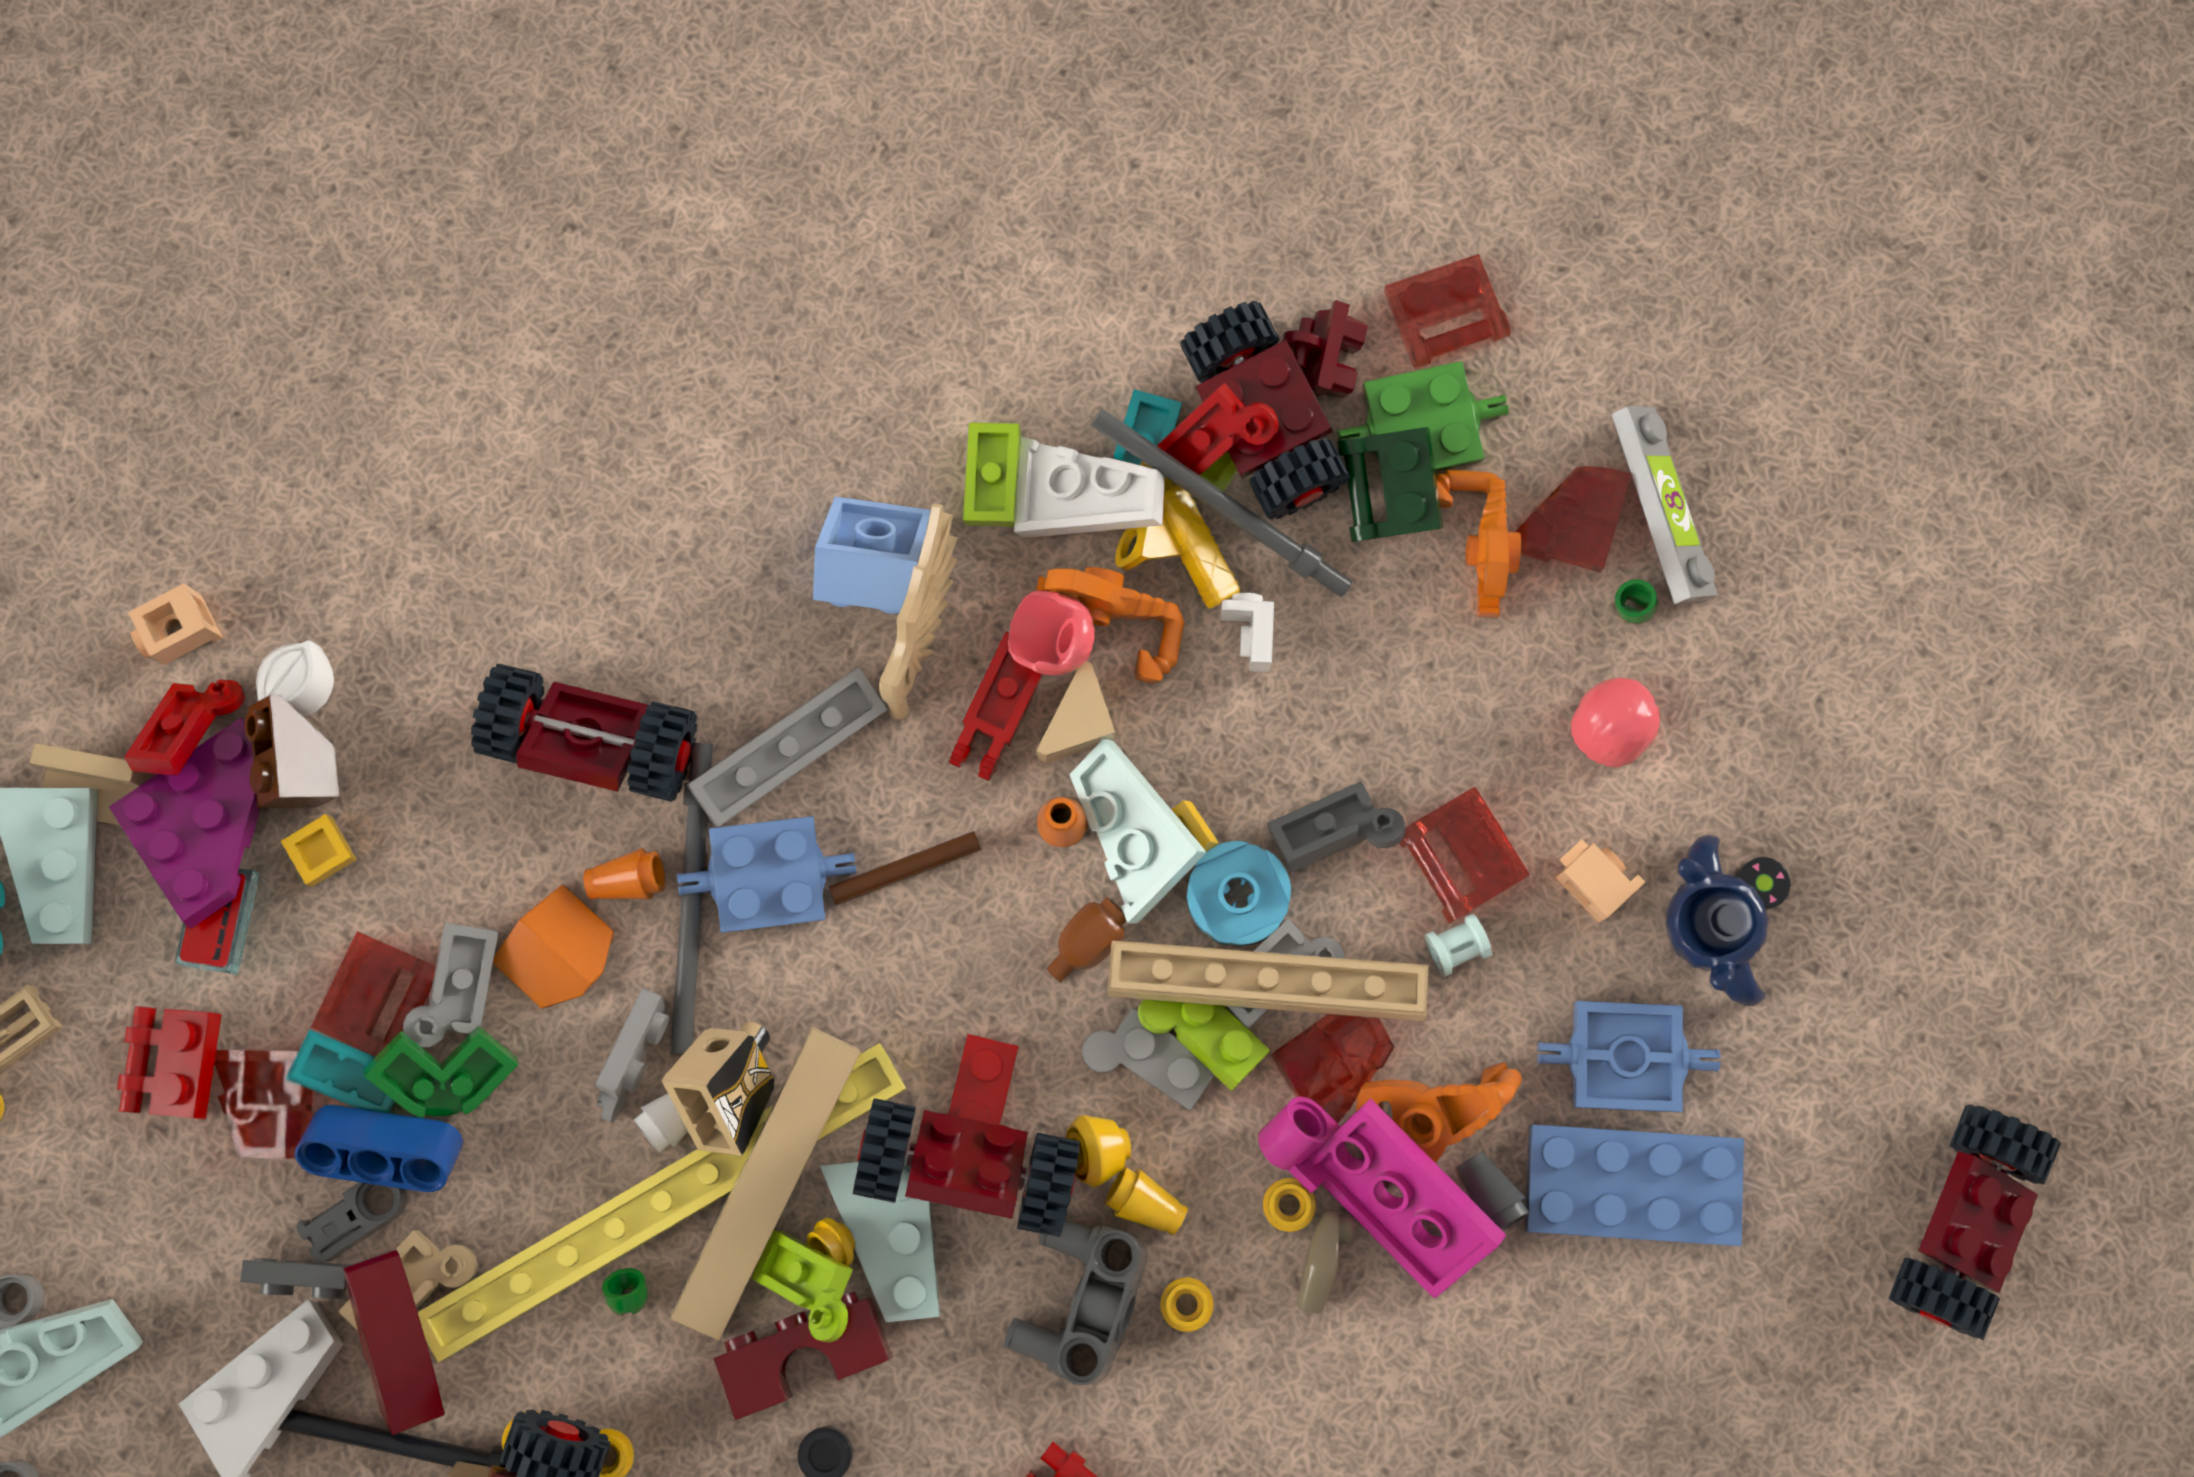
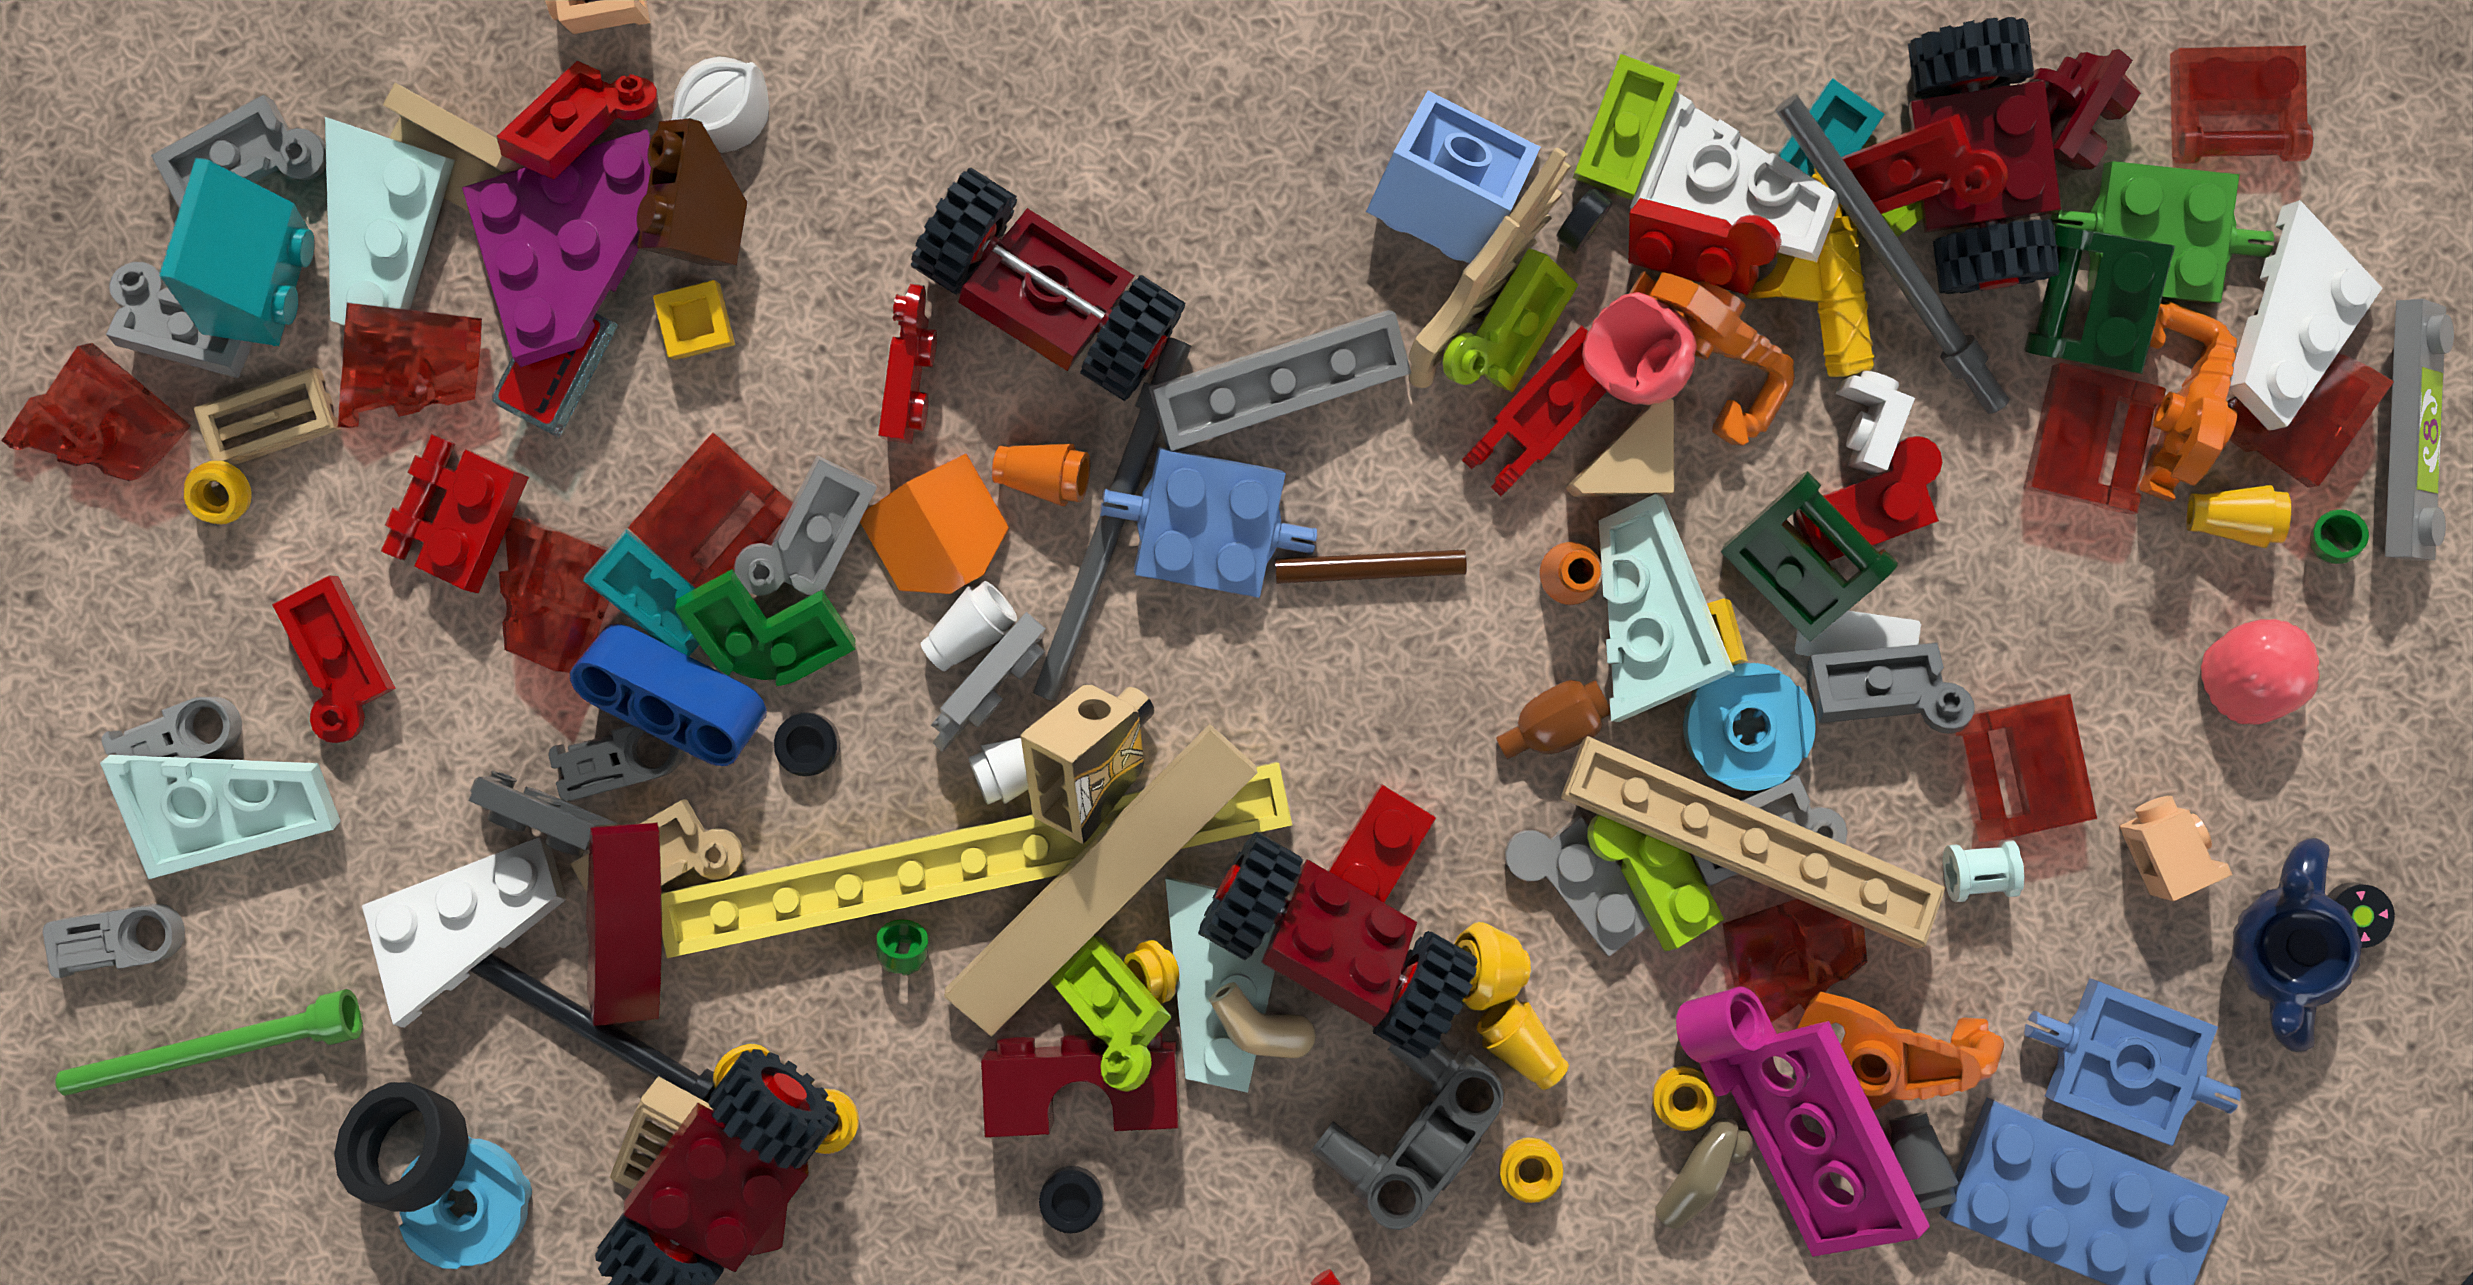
camera: 15 degrees right, 10 degrees up
(99, 955) = (406, 360): none -> clear red slope
(105, 1209) = (335, 656): none -> red hinge
(500, 860) = (903, 405): none -> red hinge
(502, 1154) = (807, 744): none -> black tile
(602, 1017) = (969, 626): none -> white cone
(931, 1263) = (1261, 1033): none -> tan arm
(954, 649) = (1513, 326): none -> lime hinge
(982, 553) = (1584, 220): none -> black tile
(1073, 541) = (1701, 245): none -> red hinge
(1229, 762) = (1793, 571): none -> dark green plate
(1278, 695) = (1887, 502): none -> red hinge
(1284, 797) = (1861, 632): none -> white sticker
(1410, 589) = (2076, 432): none -> clear red plate
(1546, 449) = (2303, 320): none -> white wing
(1557, 609) = (2242, 515): none -> yellow cone

